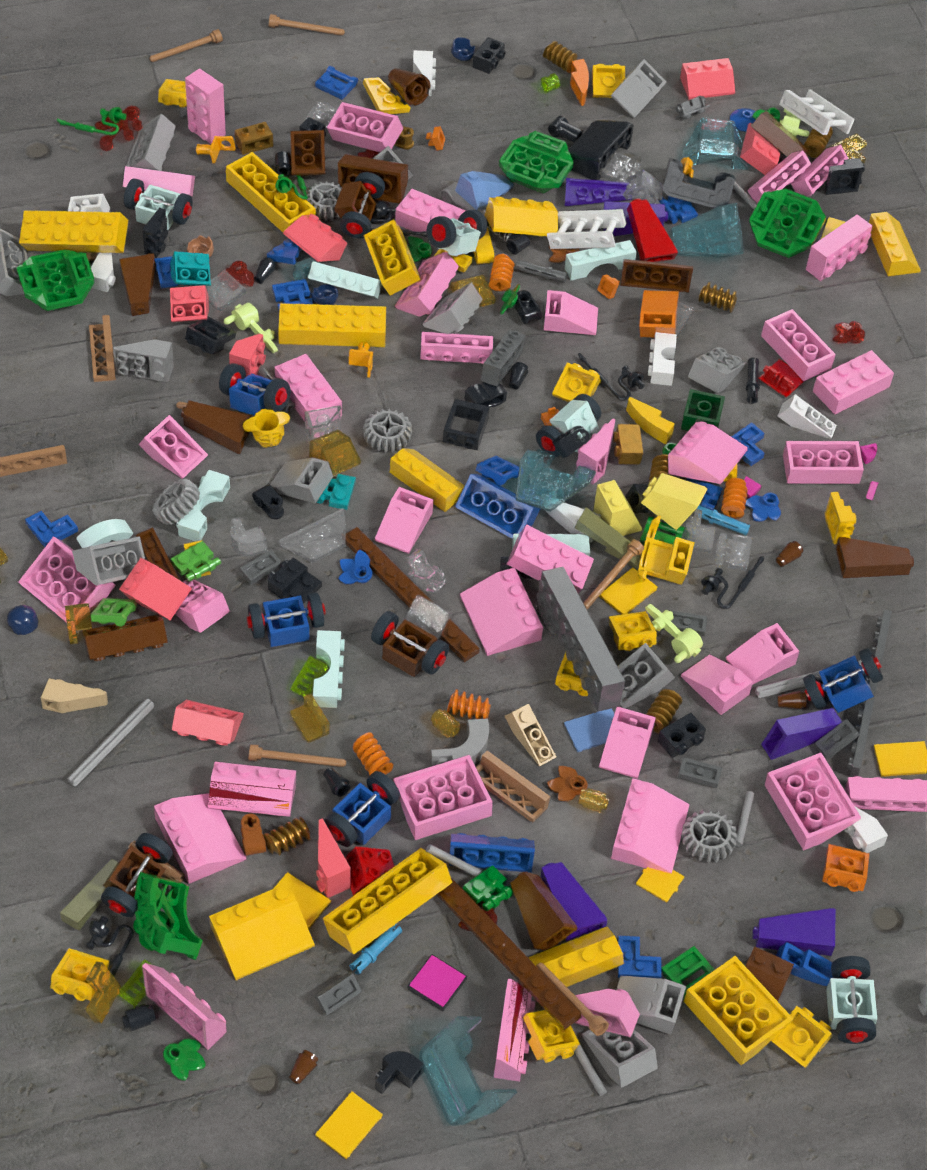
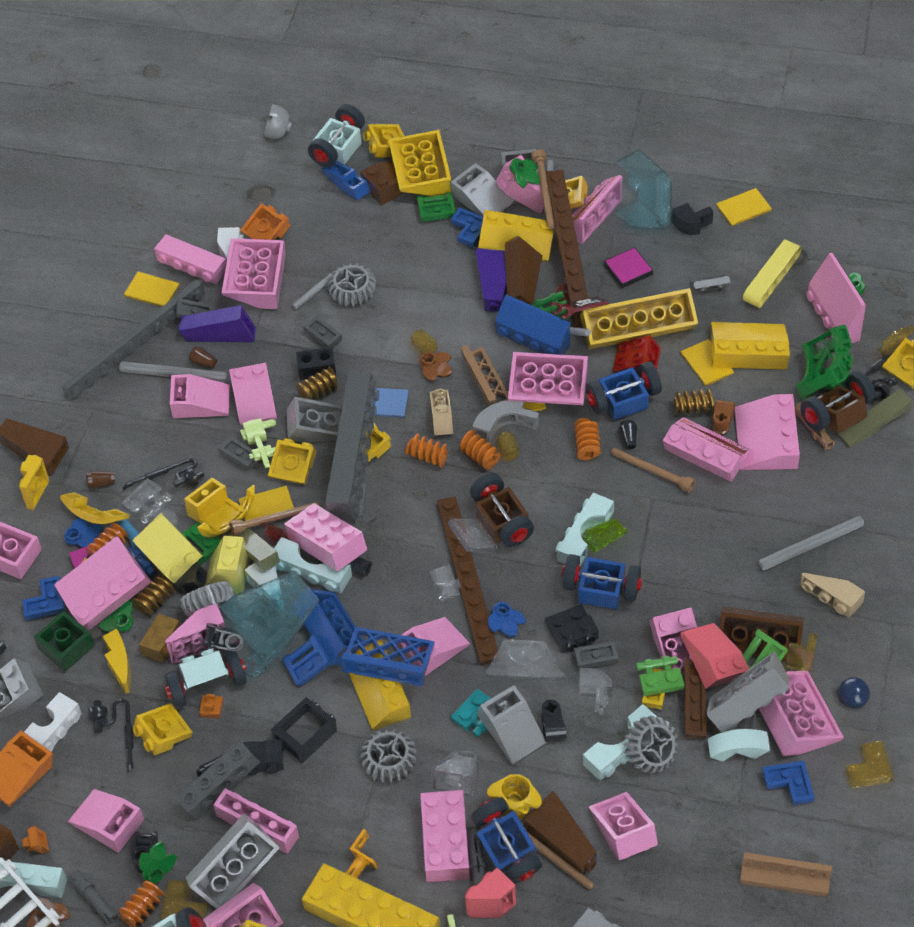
camera: 145 degrees left, 0 degrees up
(129, 986) = (862, 340): clear neon green slope -> none
(138, 1017) = (875, 319): black brick -> none
(206, 722) = (716, 524): coral slope -> none
(274, 1034) = (772, 273): none -> light yellow beam
(303, 1066) = (759, 247): reddish brown cone -> none
(310, 719) = (623, 496): clear yellow panel -> none
(332, 866) = (672, 358): coral slope -> none
(336, 450) = (462, 736): clear yellow slope -> none
(422, 464) = (385, 668): none -> blue fence
(450, 879) = (578, 305): none -> dark red flag
(502, 612) = (396, 523): bright pink slope -> none
(517, 687) = (427, 451): none -> orange piece
(598, 994) = (524, 172): none -> green plate
(600, 556) = (274, 532): none -> clear red plate
(612, 467) = (205, 596): none -> light grey gear
(627, 742) = (368, 361): bright pink slope -> none
(650, 827) = (395, 309): bright pink slope -> none
(660, 883) = (410, 276): yellow piece -> none
(768, 519) = (78, 505): none -> yellow slope
(803, 930) = (336, 200): dark purple slope -> none
(845, 682) = (154, 339): blue brick -> none

